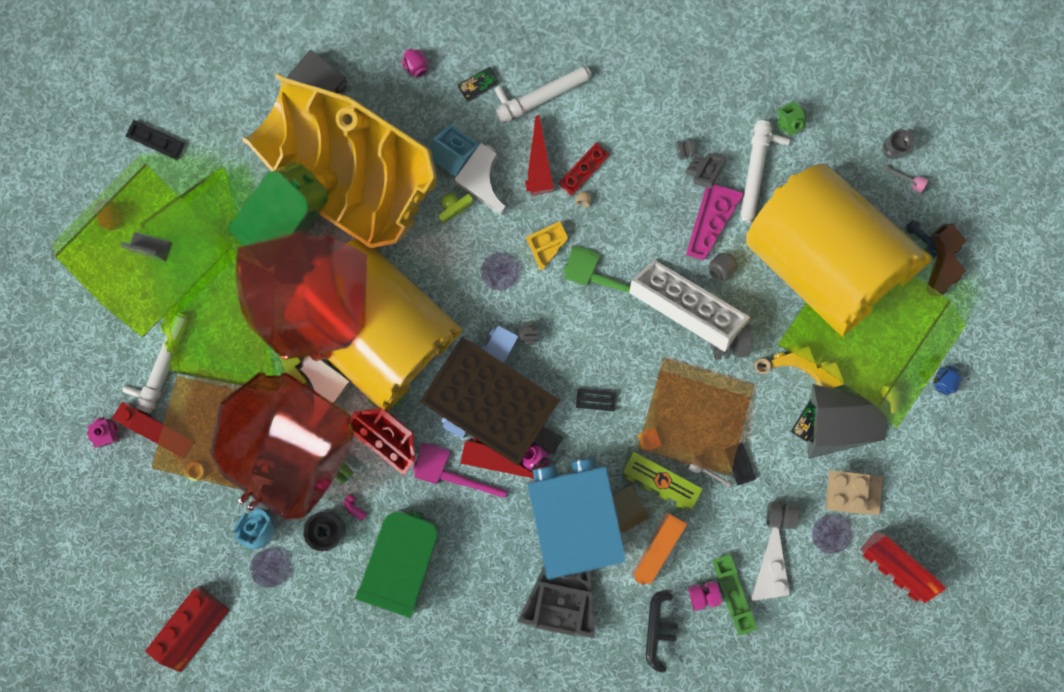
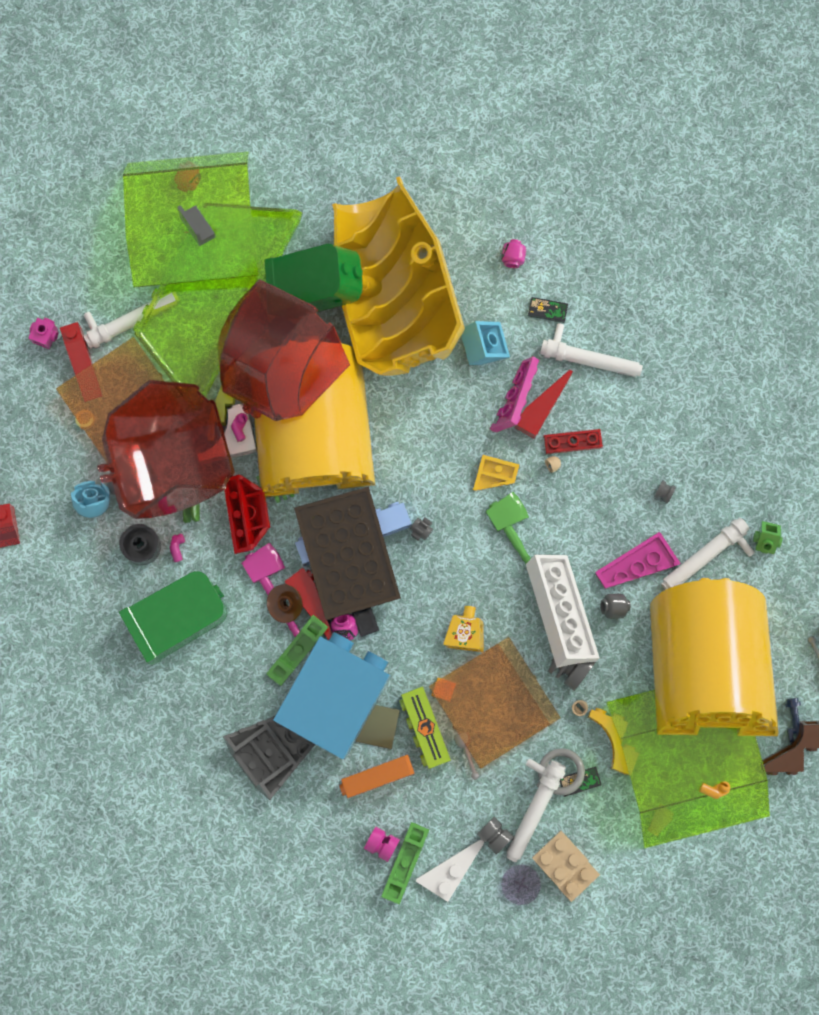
camera: 40 degrees right, 5 degrees down
(155, 140) = (269, 150): black tile -> none
(269, 568) = (76, 538): tile -> none
(318, 73) = (432, 202): dark grey panel -> none
(320, 376) = (238, 425): none -> dark pink arm
(453, 206) = (448, 385): lime tile -> none
(475, 487) = (277, 603): none -> reddish brown dish
(476, 177) = (485, 377): white arch -> none
(499, 272) = (440, 464): tile -> none
(512, 171) = (516, 396): none -> dark pink wing
(515, 507) = (297, 650): none -> bright green slope
(611, 401) = (435, 619): black tile -> none
(629, 382) = (465, 632): none -> yellow torso
(653, 629) = (319, 835): black piece -> none
(706, 170) = (666, 521): dark grey hinge -> none
(741, 467) = (496, 771): black tile -> none
(788, 445) = (578, 762): none -> light grey piece
(791, 443) = (548, 784): none -> white cylinder
(843, 422) = (605, 805): dark grey wedge -> none
(902, 568) = (552, 956): red slope -> none
(921, 342) = (716, 791): none -> light orange arm
(947, 380) = (716, 845): blue head -> none

